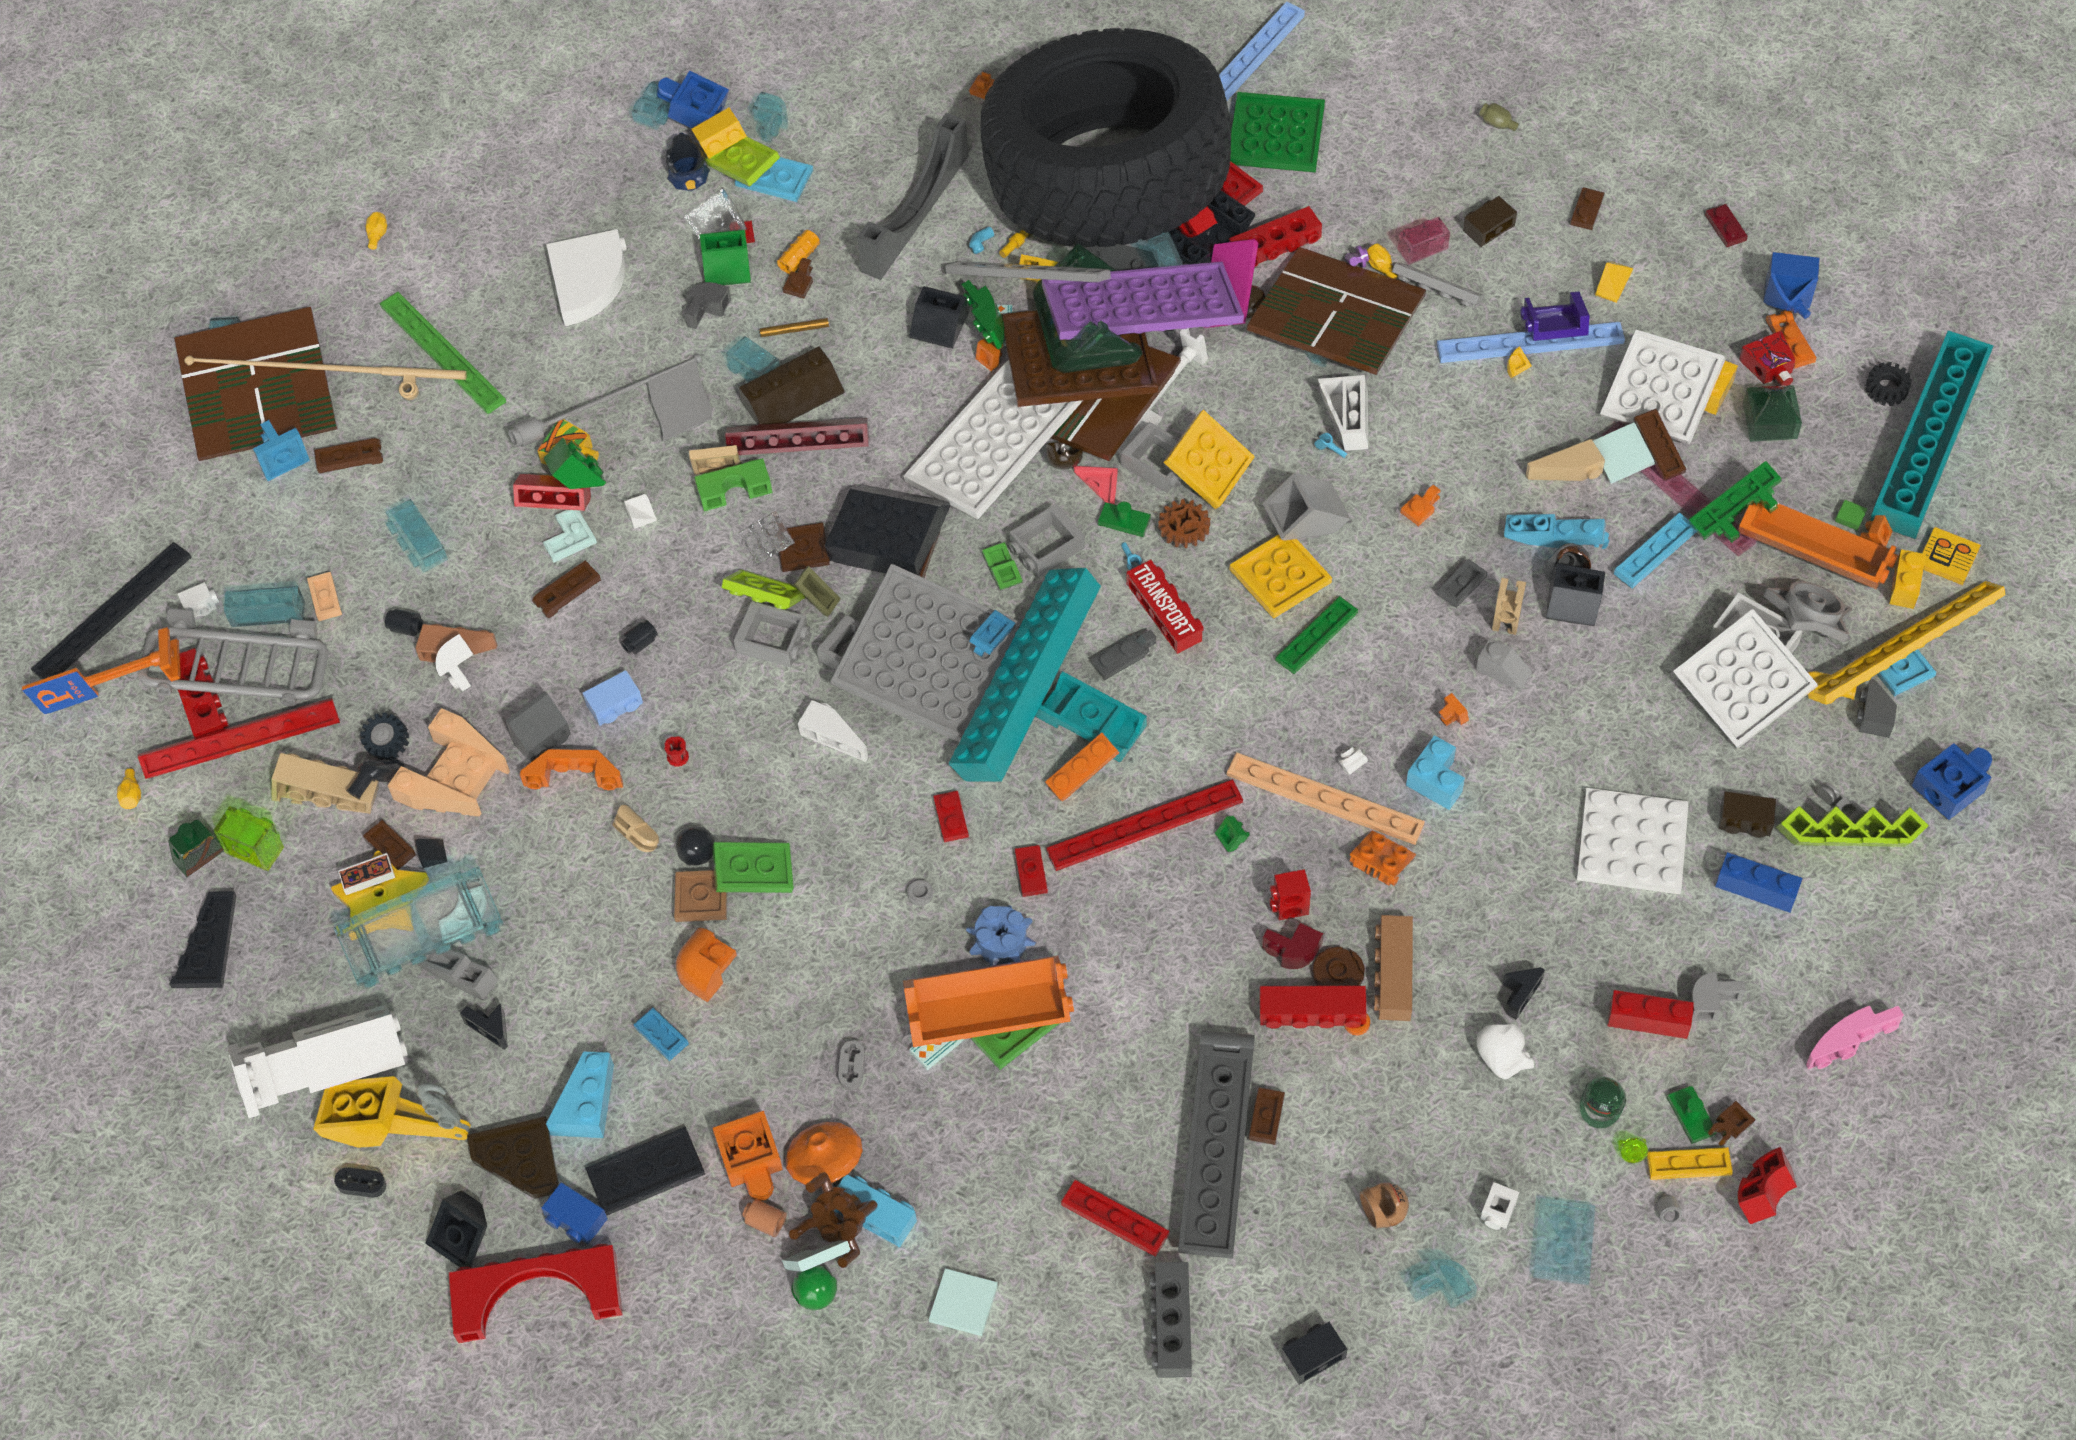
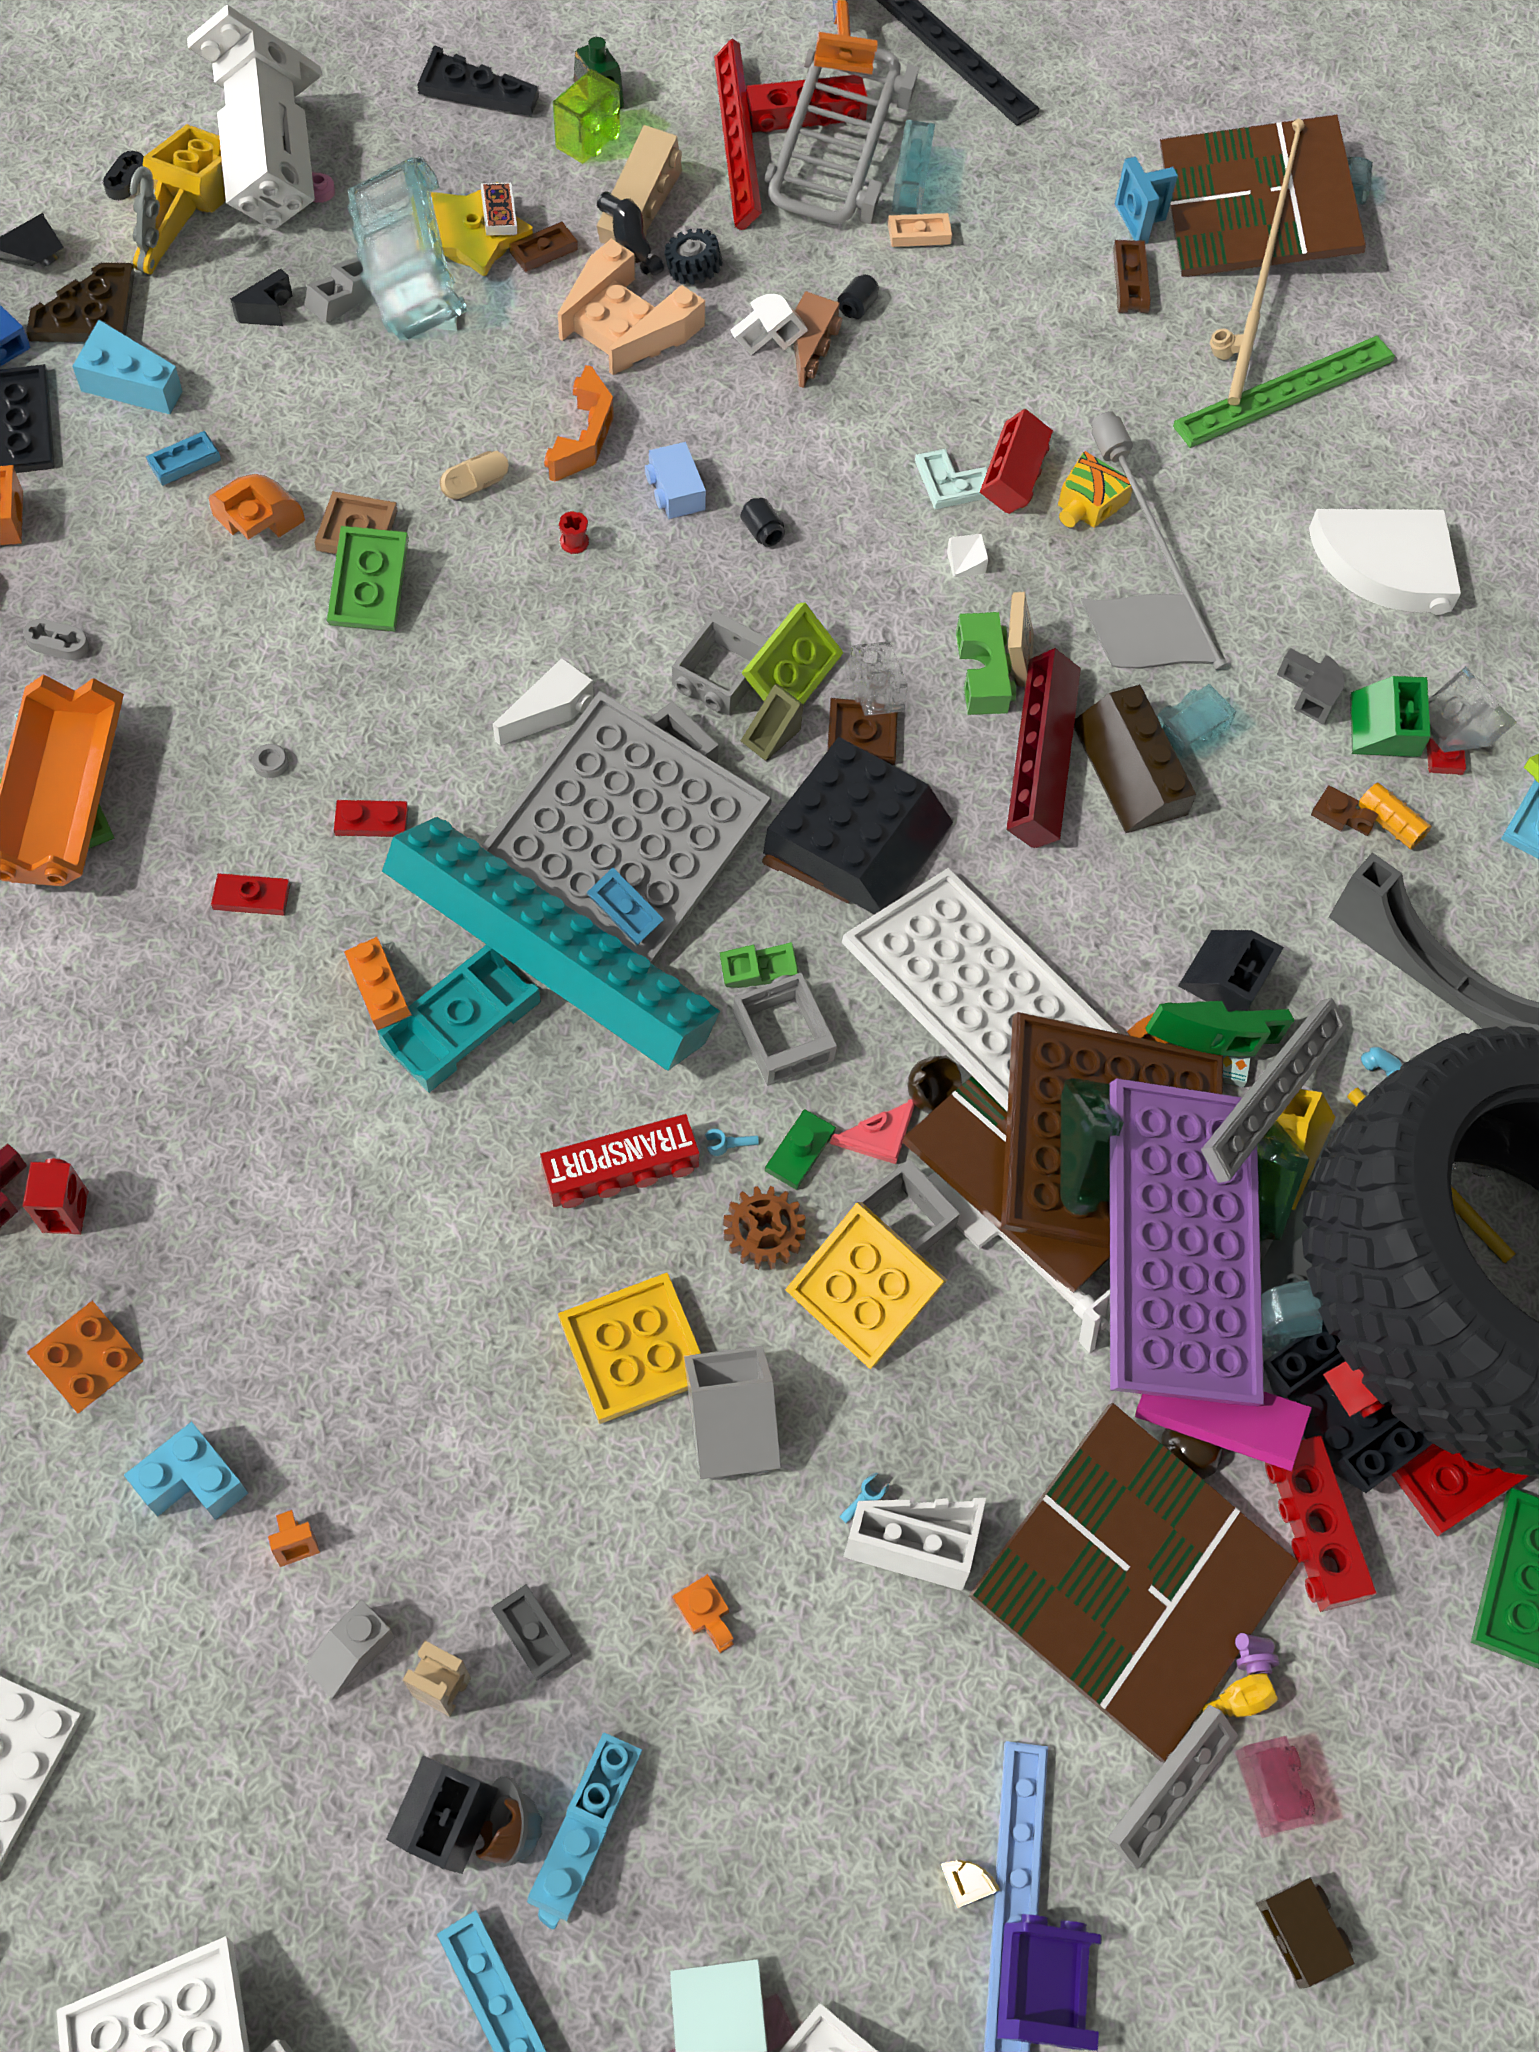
camera: 95 degrees right, 5 degrees up
(129, 790) = (699, 39): yellow piece -> none
(199, 600) = (943, 112): white brick -> none
(375, 227) = (1507, 345): yellow piece -> none
(415, 536) = (985, 322): clear light blue brick -> none
(431, 852) = (522, 282): black slope -> none
(538, 727) = (649, 393): dark grey slope -> none
(566, 588) = (864, 462): reddish brown plate -> none
(573, 467) = (1037, 476): green slope -> none
(694, 845) = (433, 533): black hair -> none
(794, 327) = (1256, 790): pearl gold bar -> none
(1013, 938) = (157, 829): medium blue brick -> none
(1123, 654) = (559, 1089): dark grey hinge -> none
(1144, 825) = (268, 1056): red tile -> none
(1231, 833) = (202, 1155): green tile -> none
(1316, 635) = (509, 1375): green tile -> none
(1325, 798) = (215, 1310): light nougat tile -> none
(1351, 759) = (268, 1361): white plate -> none
(1569, 464) = (719, 1917): tan slope -> none

